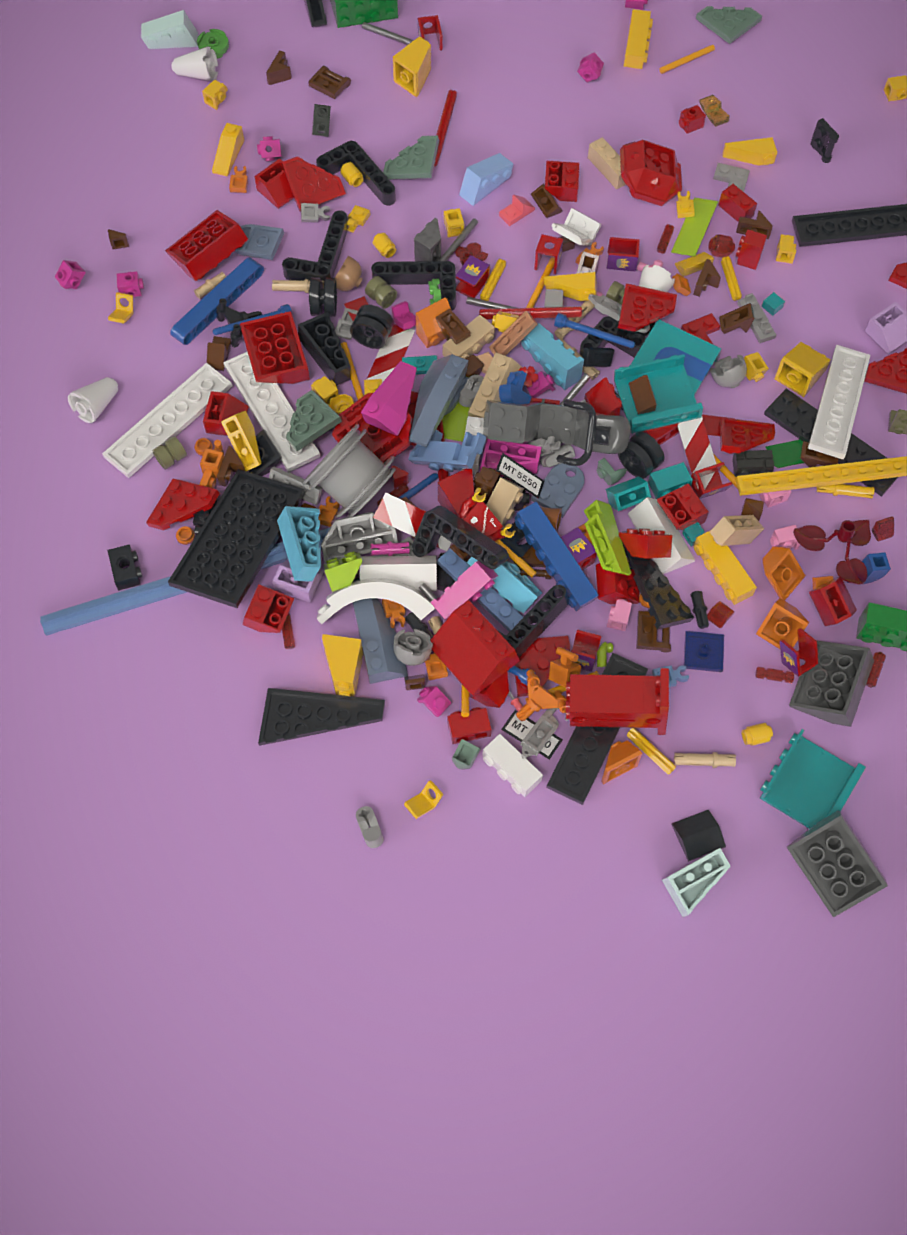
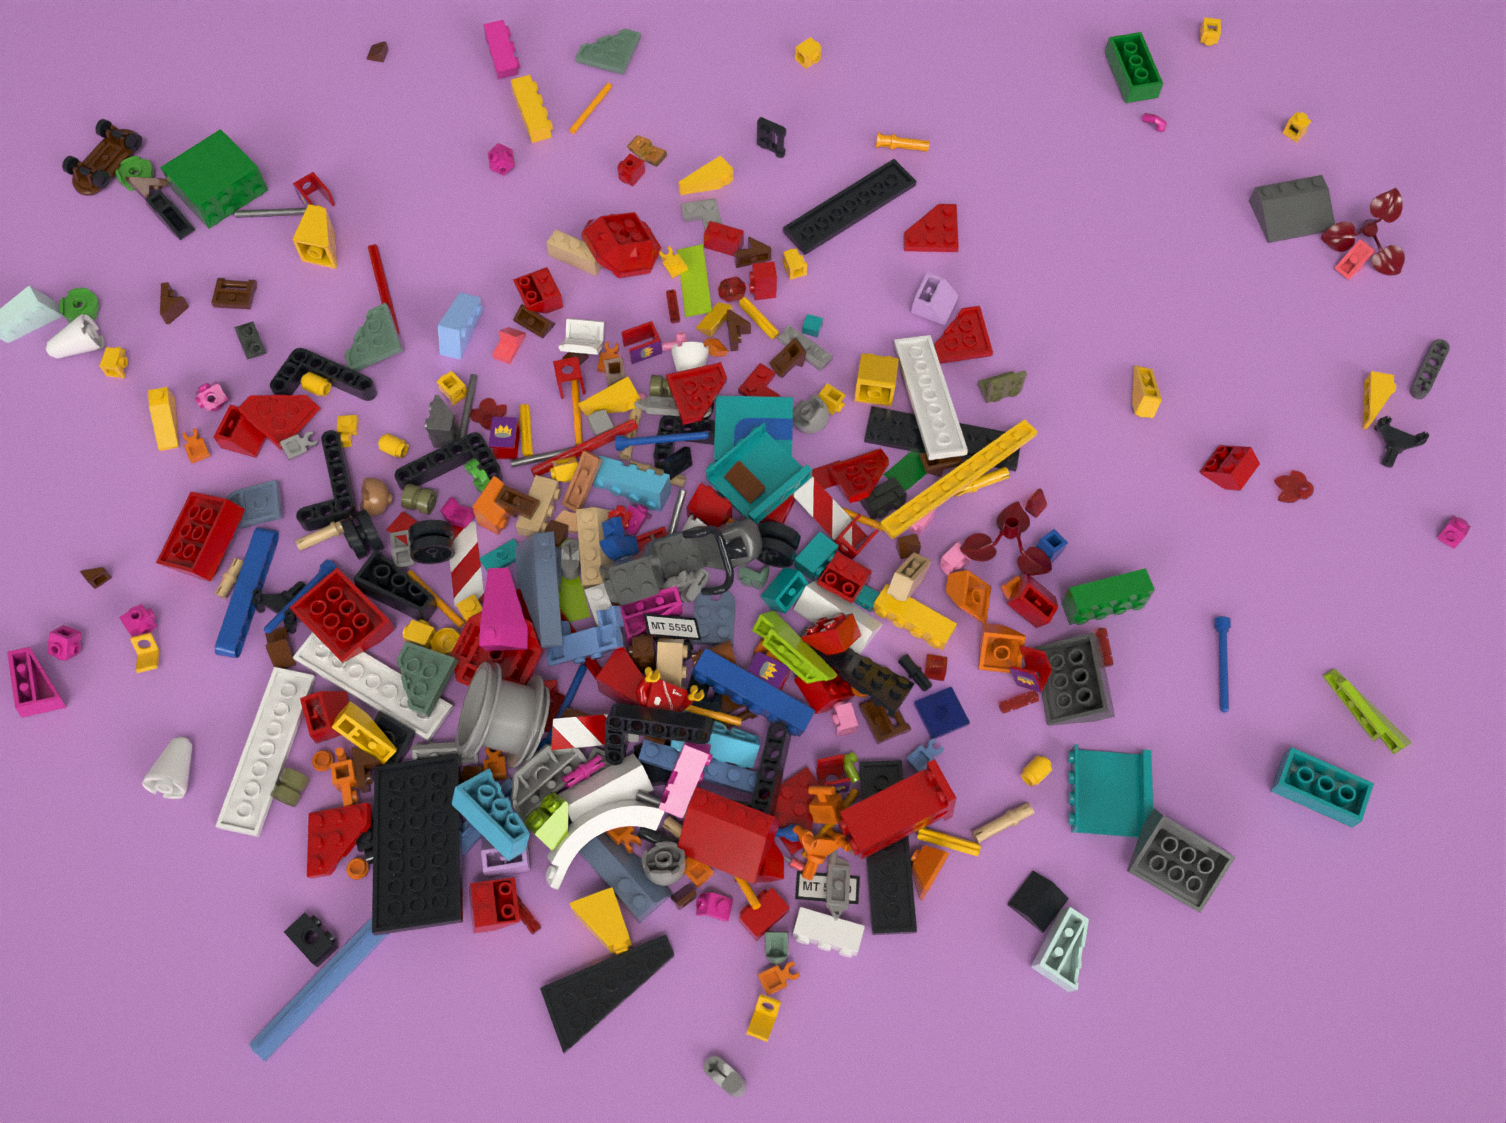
camera: 30 degrees left, 0 degrees up
(31, 292) = (30, 684): none -> dark pink wedge
(449, 778) = (775, 979): none -> orange plate

